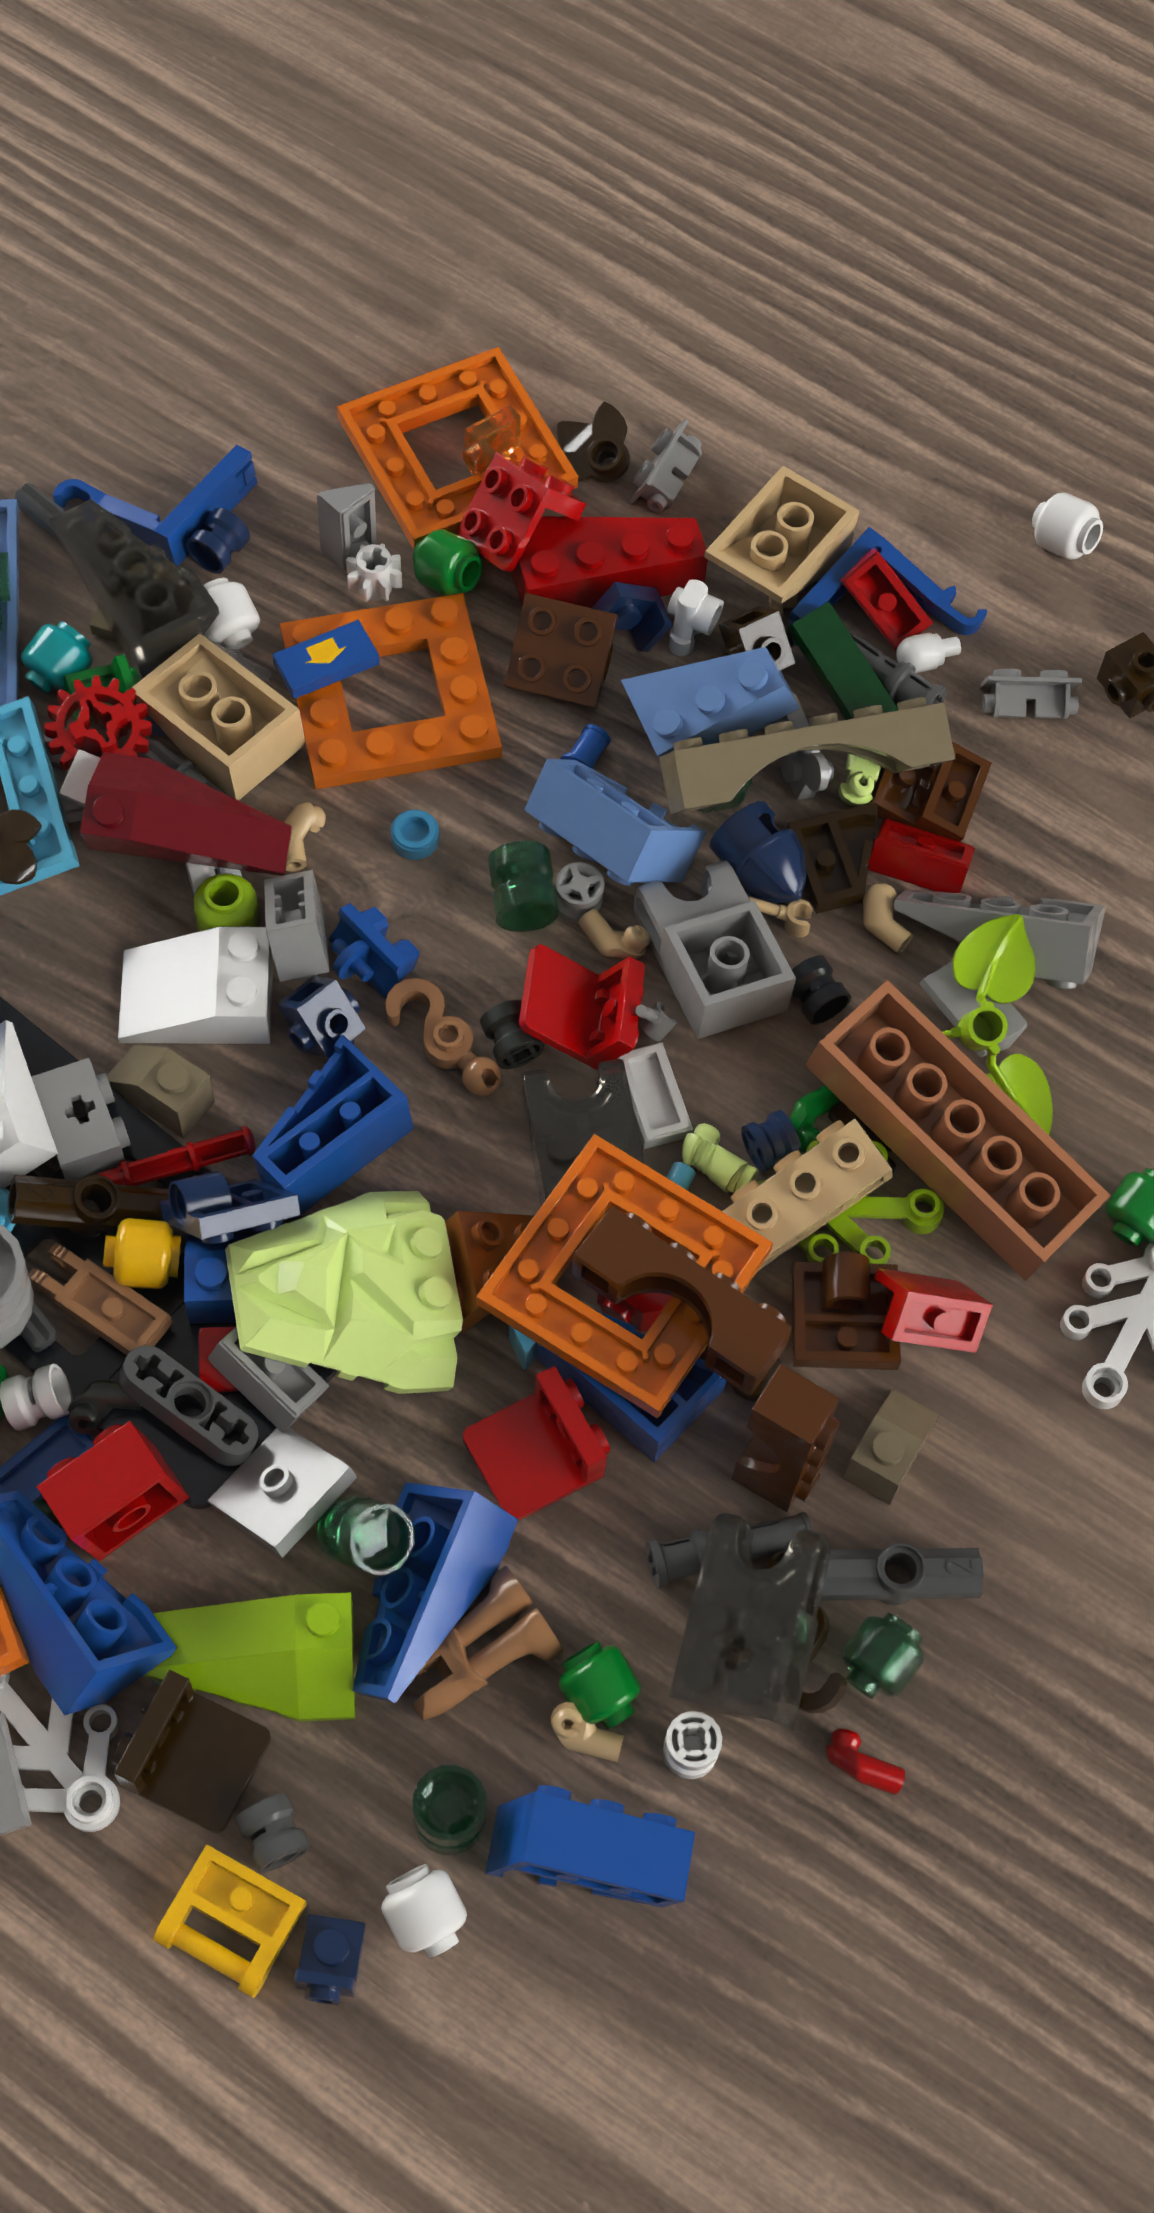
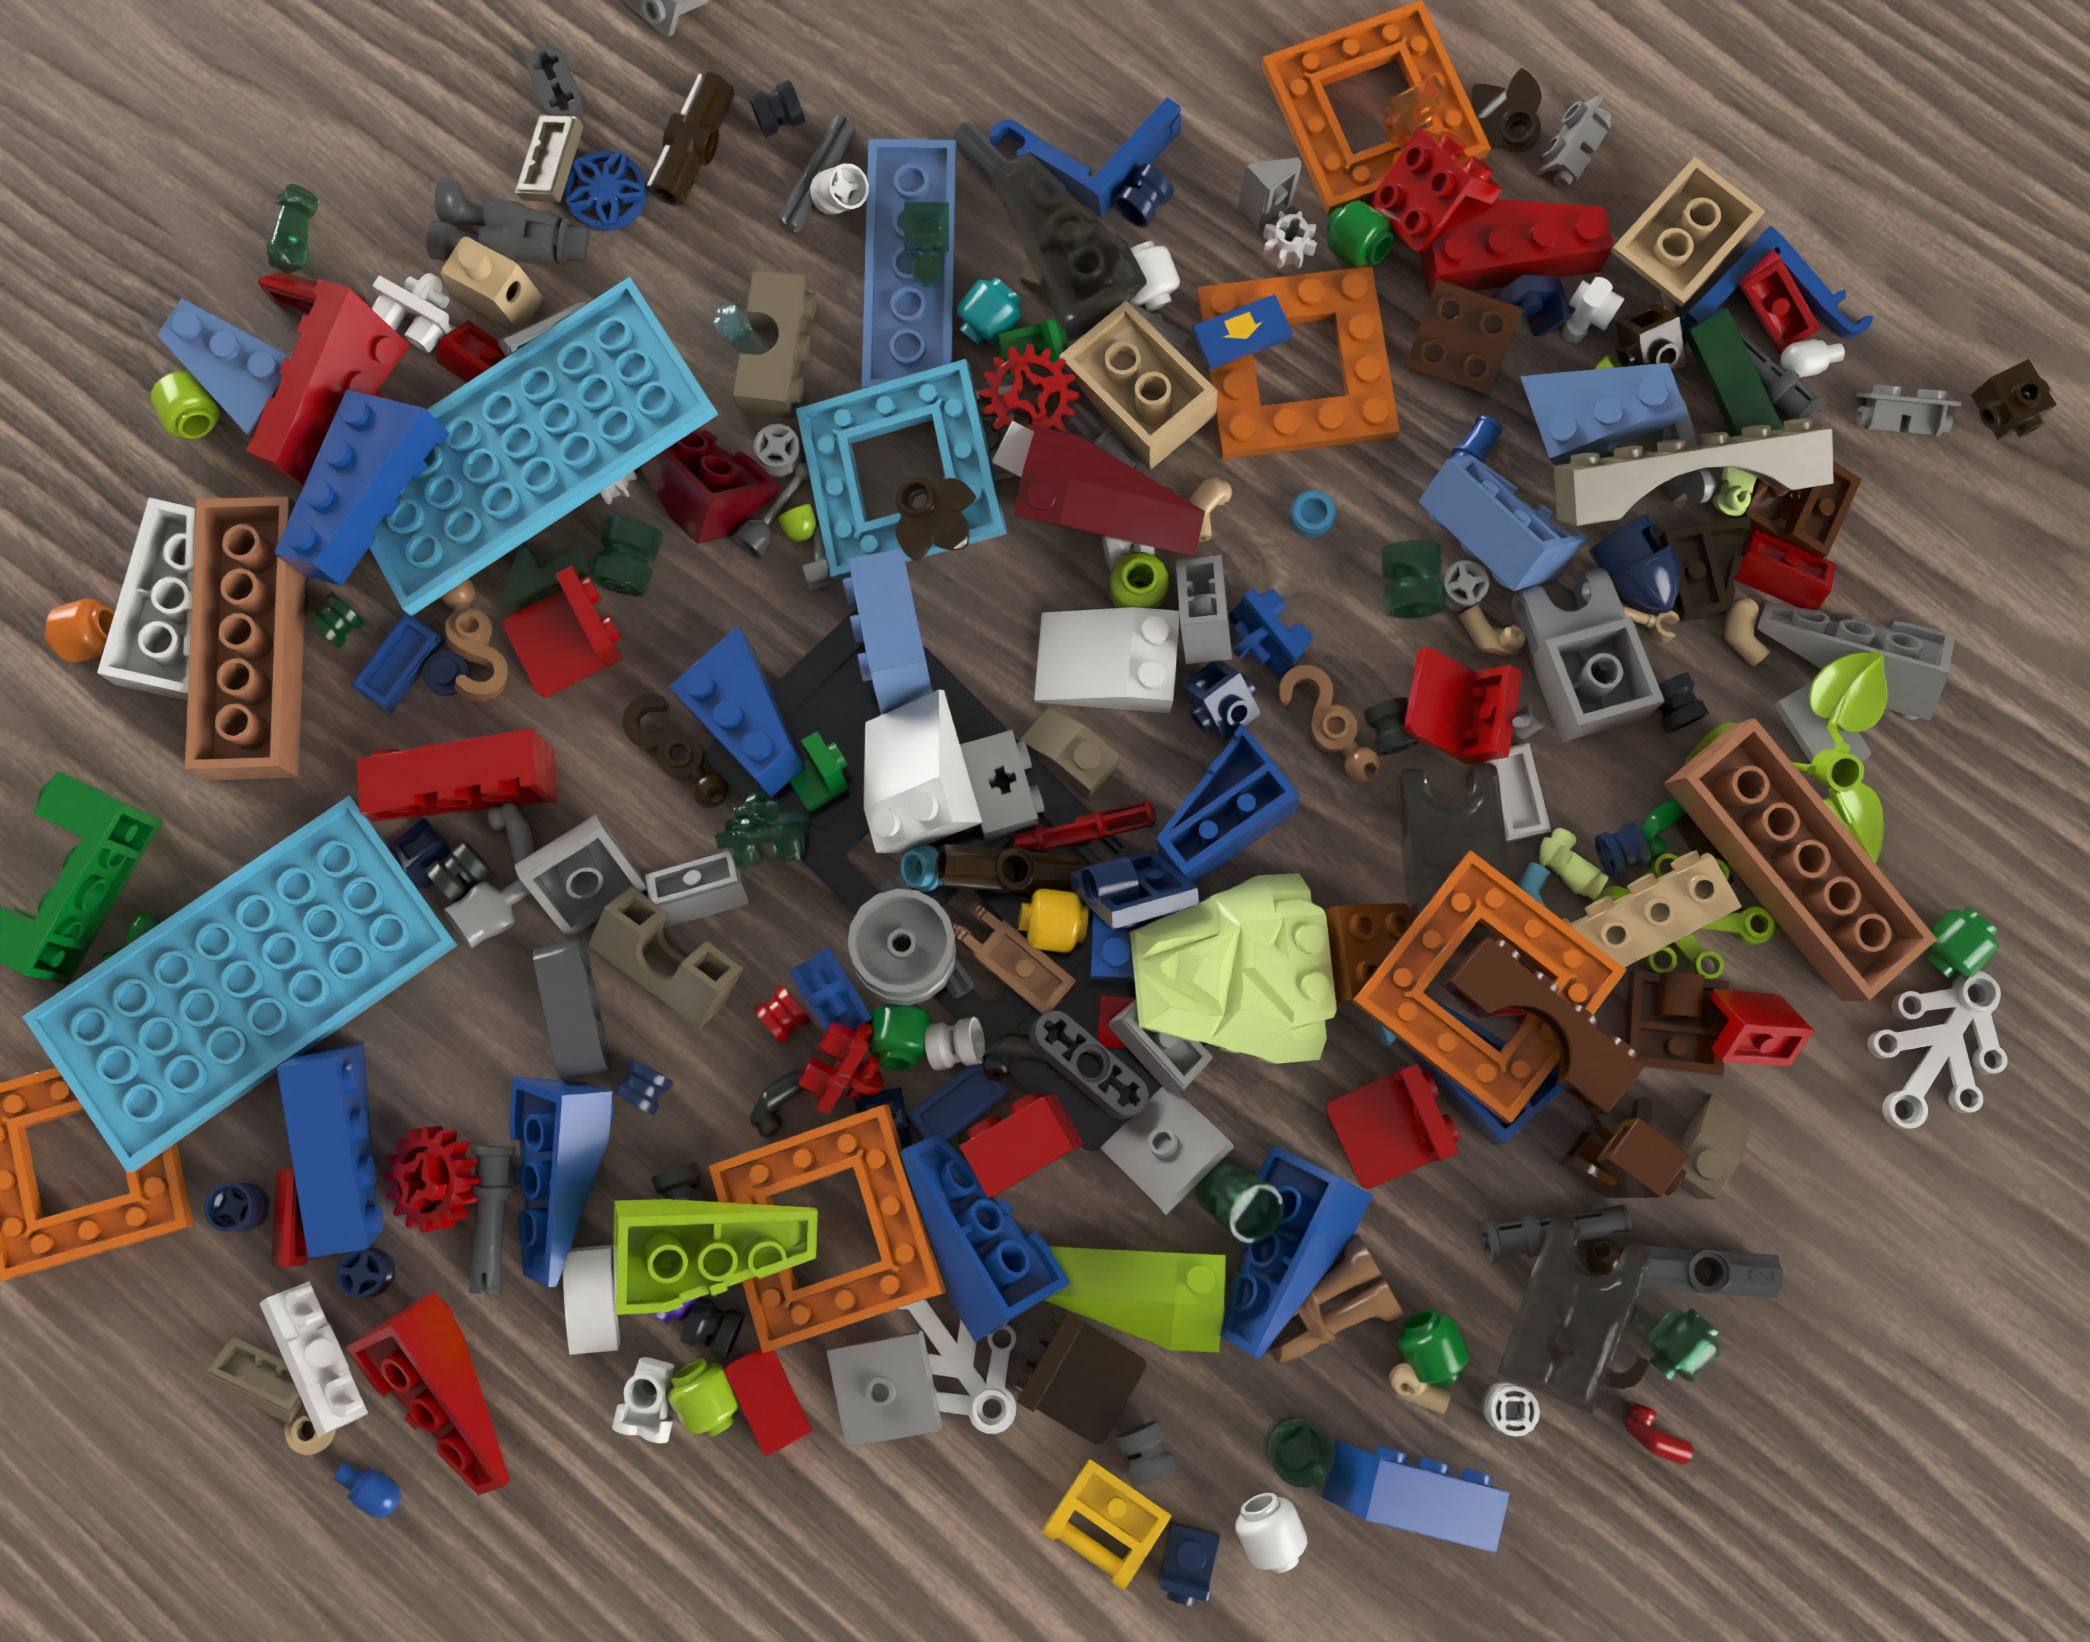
camera: 10 degrees right, 15 degrees up
(1067, 526) = (1961, 232): white head -> none

